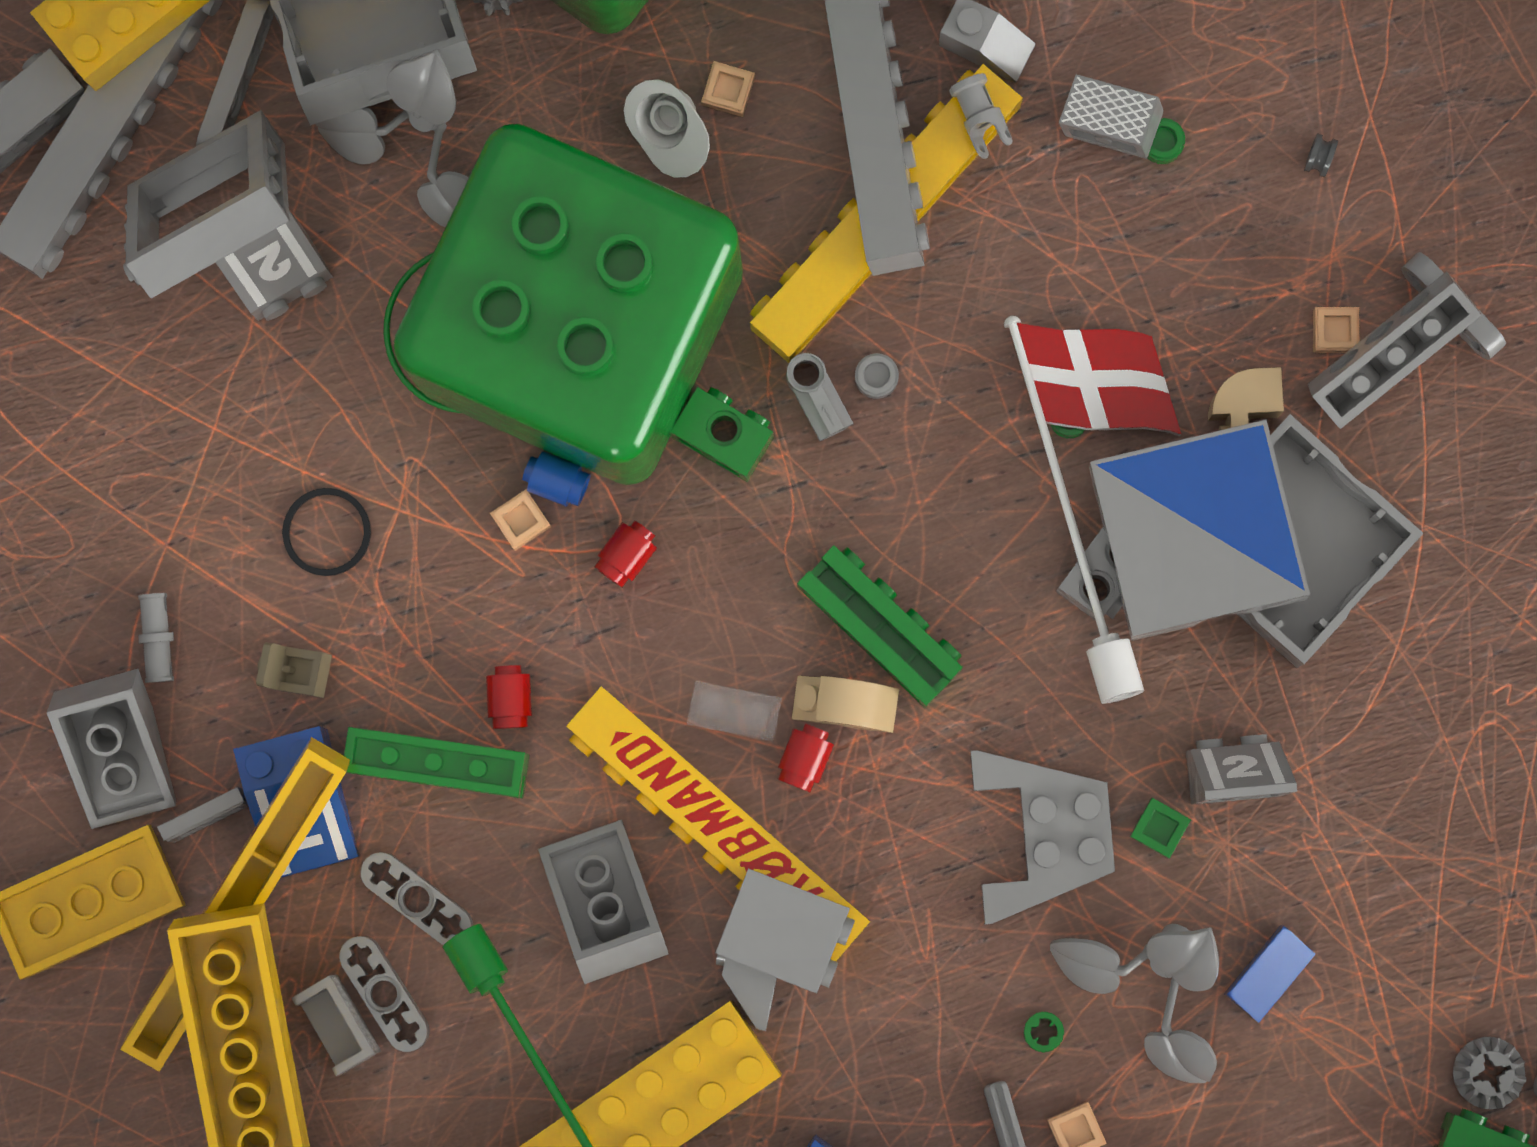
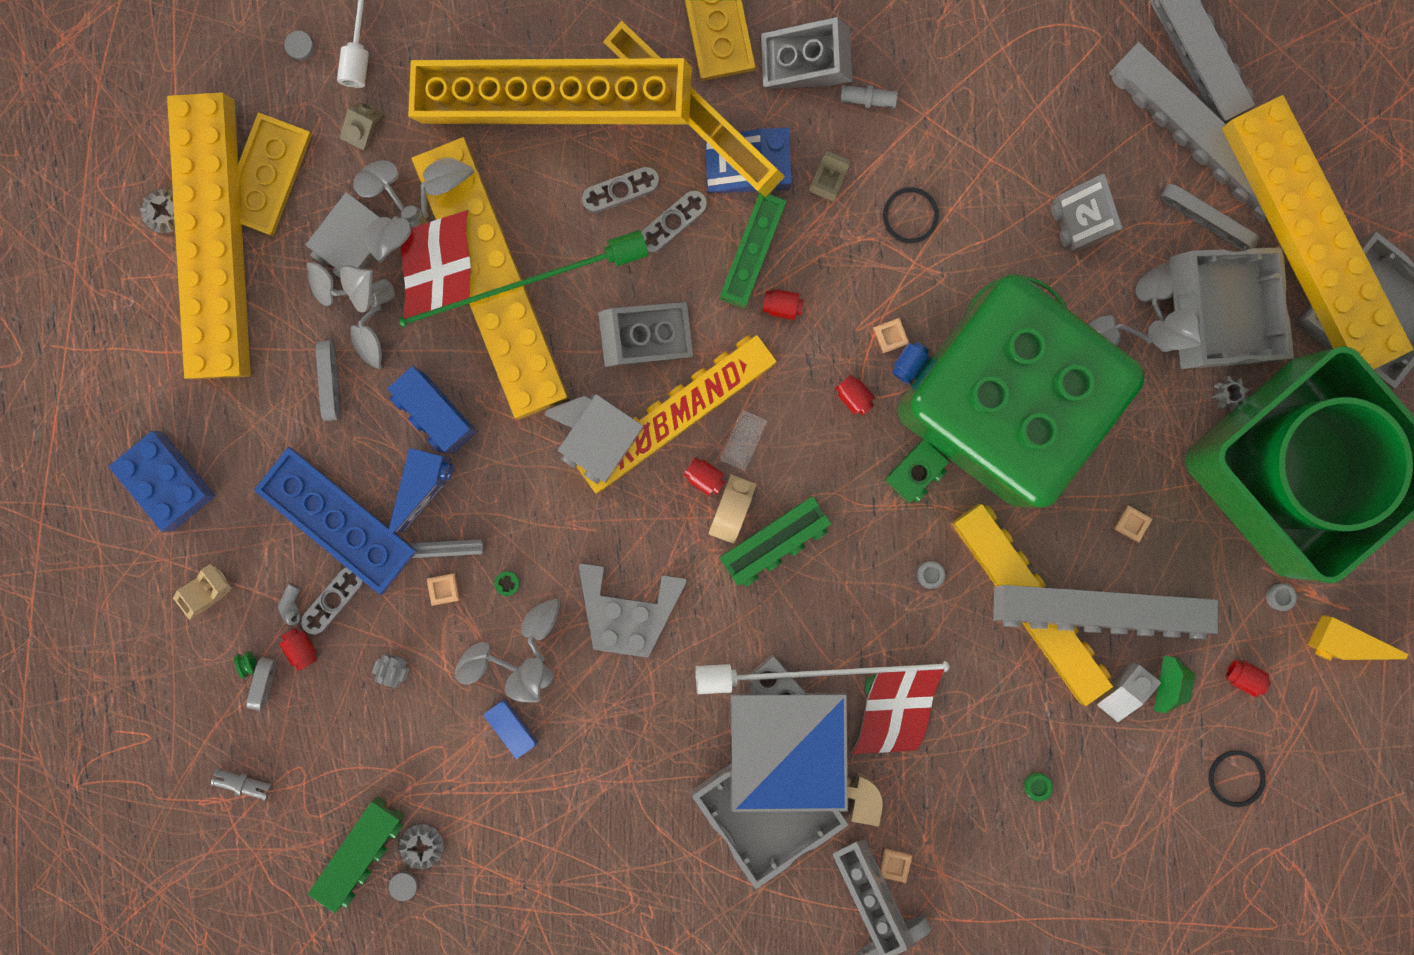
camera: 90 degrees right, 5 degrees up
(203, 815) = (752, 101): light grey tile -> none
(223, 230) = (1105, 145): light grey window -> none
(337, 1023) = (608, 158): light grey panel -> none
(667, 127) = (1117, 480): white piece -> none
(820, 400) = (923, 536): light grey piece -> none
(979, 112) = (1083, 677): light grey piece -> none
(1111, 116) = (1061, 758): light grey panel -> none
(1160, 828) = (613, 683): green plate -> none
(1238, 771) = (634, 740): light grey slope -> none
(1321, 155) = (1006, 883): dark grey bush -> none

